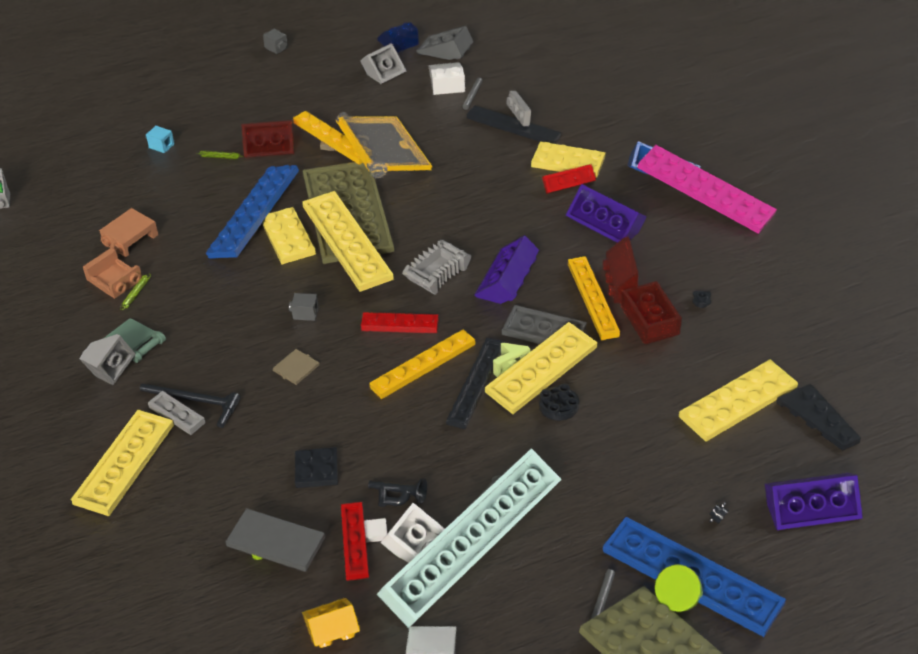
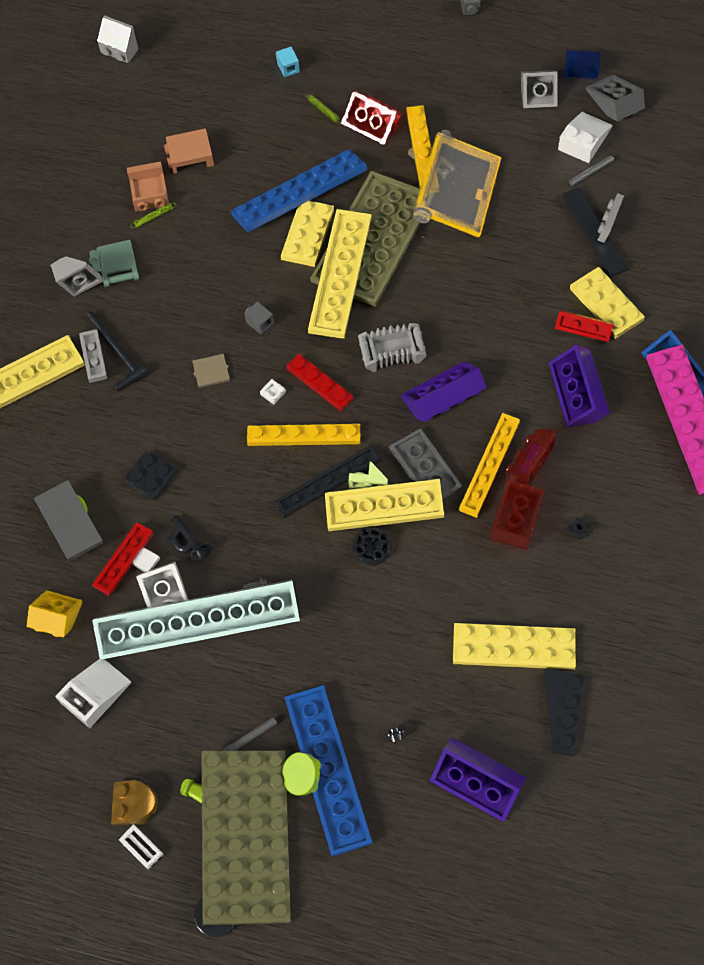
camera: 40 degrees right, 20 degrees up
(366, 350) = (273, 391): none -> white tile

